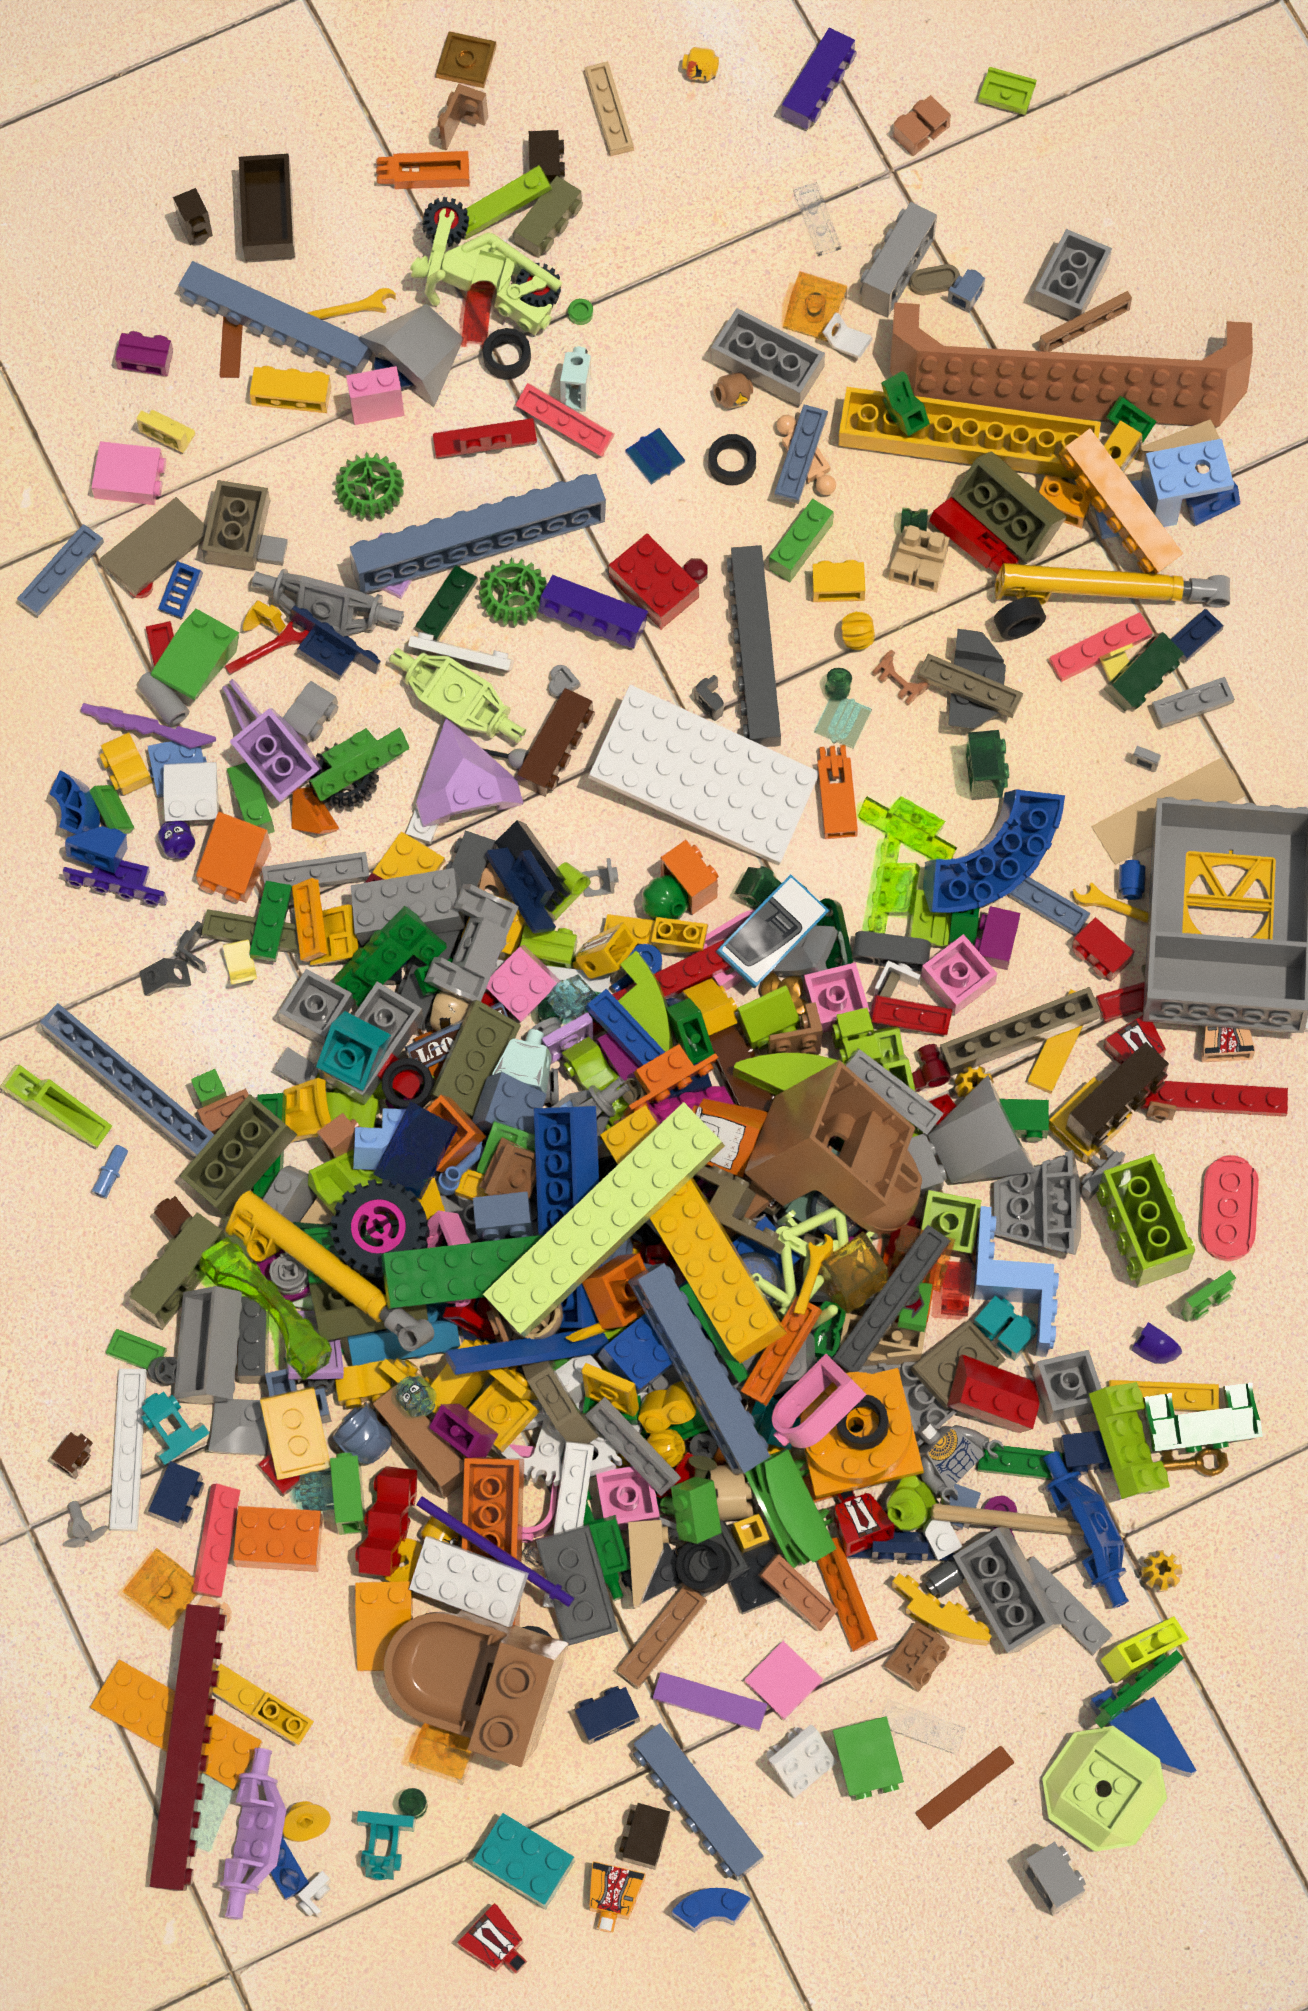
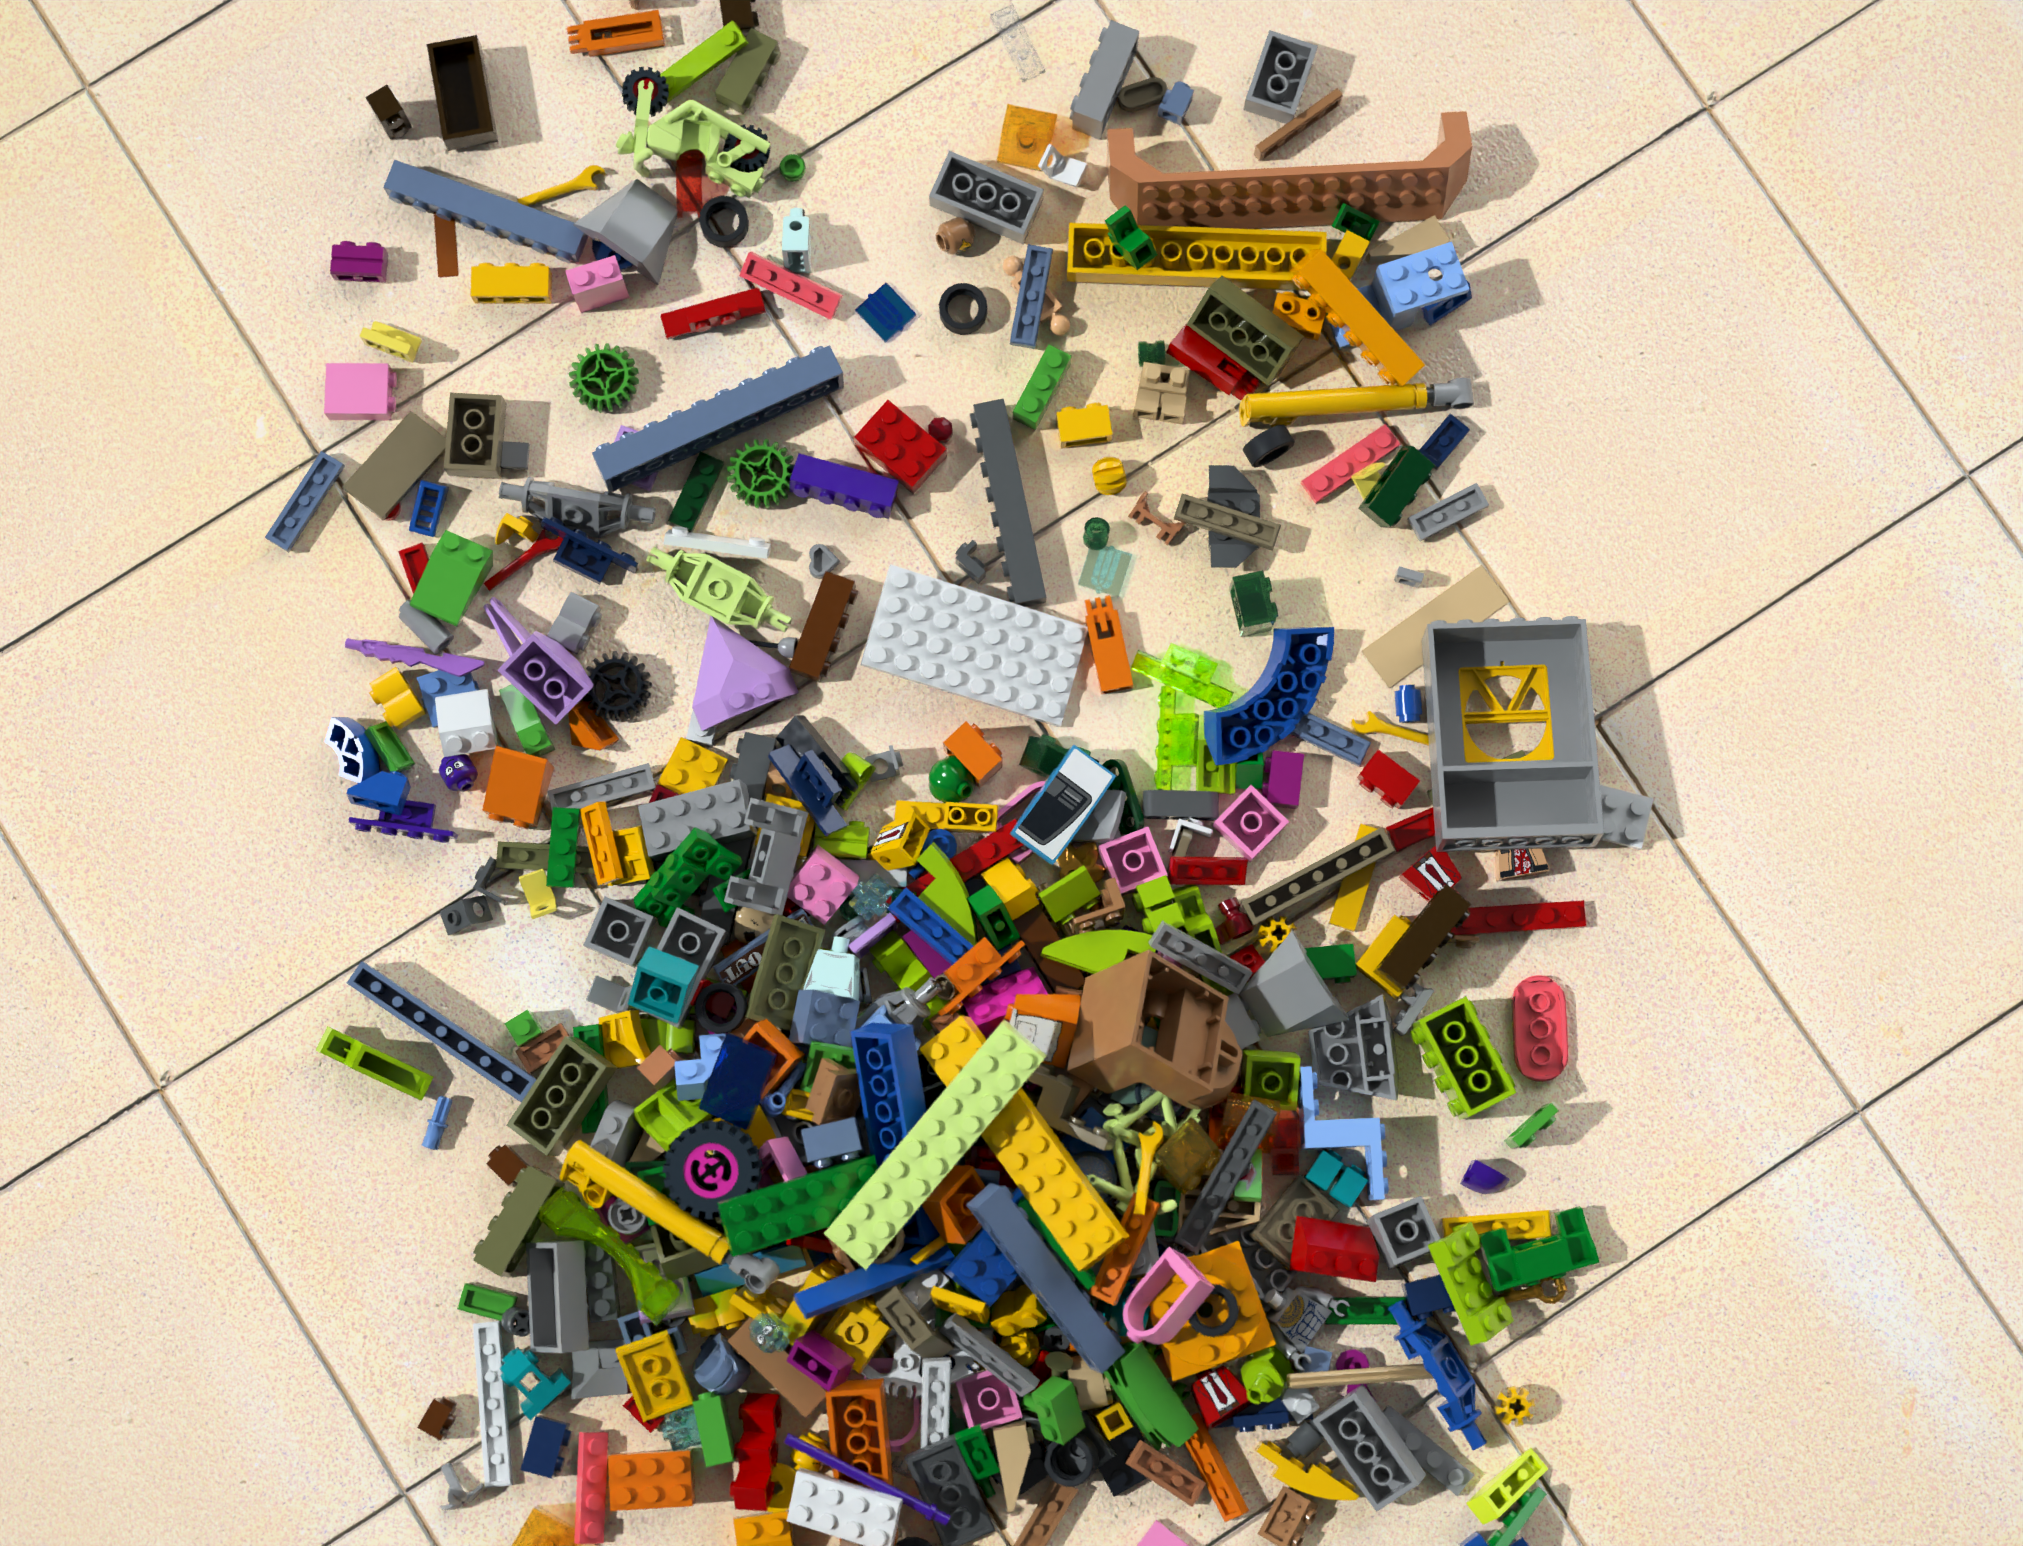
camera: 10 degrees left, 10 degrees up
(356, 759) = (626, 671): bright green bracket -> none

